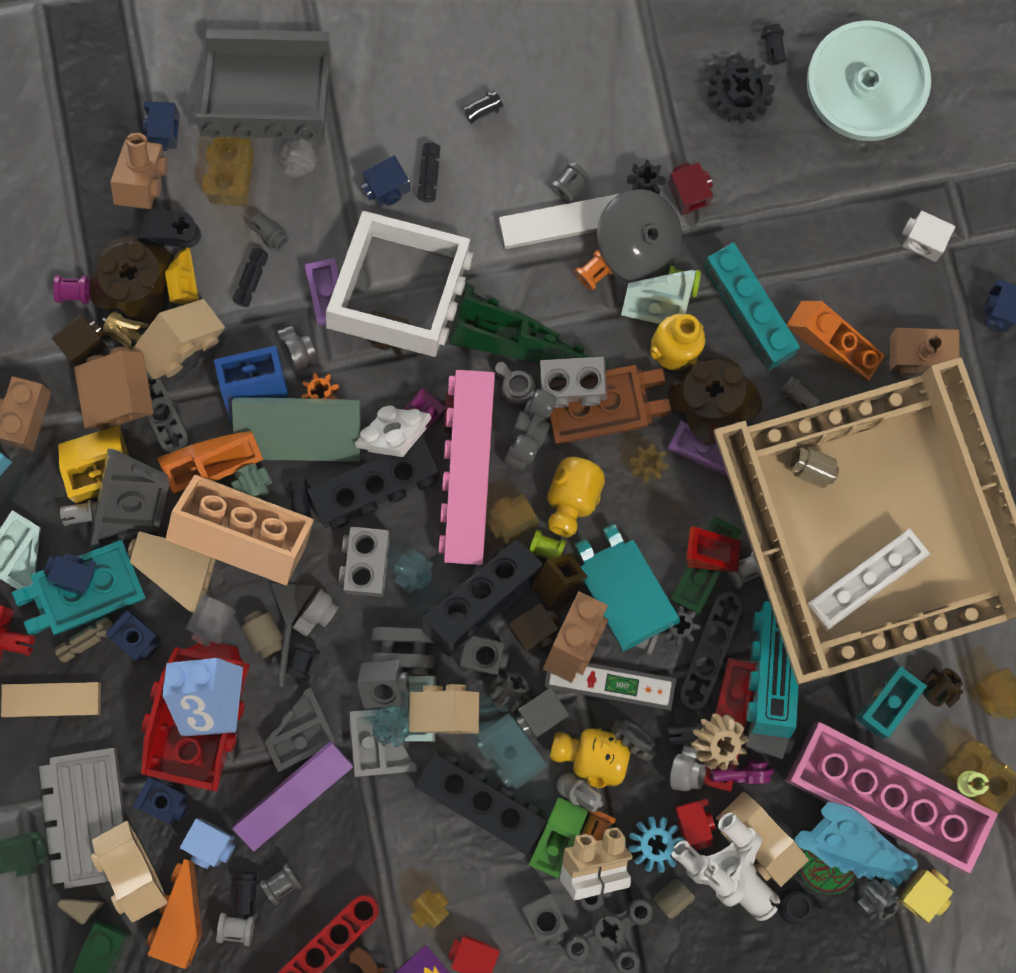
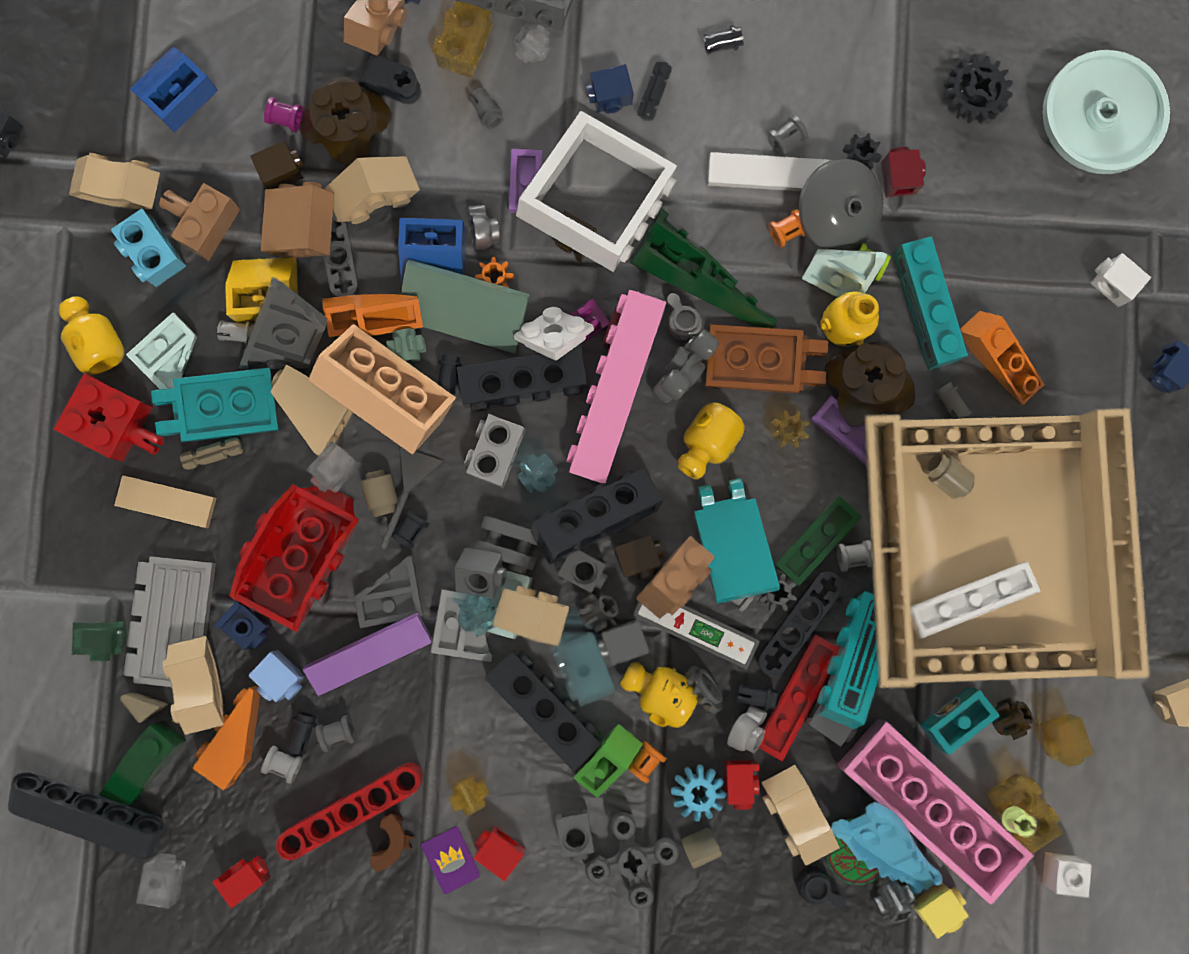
camera: 10 degrees right, 5 degrees up
(70, 573) = (210, 388): dark blue brick -> none
(122, 329) = (320, 165): pearl gold piece -> none
(124, 627) = (269, 468): dark blue brick -> none
(181, 279) = (390, 132): yellow tile -> none
(203, 695) = (305, 540): light blue slope -> none
(250, 277) = (457, 148): black axle -> none
(319, 610) = (438, 485): light grey piece -> none
(512, 518) = (645, 446): clear yellow brick -> none
(546, 547) = (671, 484): lime bush -> none
(559, 580) = (674, 519): dark brown brick -> none
(574, 372) = (742, 322): light grey brick -> none
(579, 791) = (639, 724): light grey axle -> none
(596, 865) = (636, 799): tan hips -> none
(712, 551) = (829, 530): red slope -> none
(730, 746) = (785, 714): tan gear -> none
(732, 869) = (763, 839): white wheel -> none
(754, 773) = (809, 750): magenta plate -> none
(774, 44) = (1022, 53): black pin -> none
(918, 349) = (1083, 389): medium nougat brick -> none

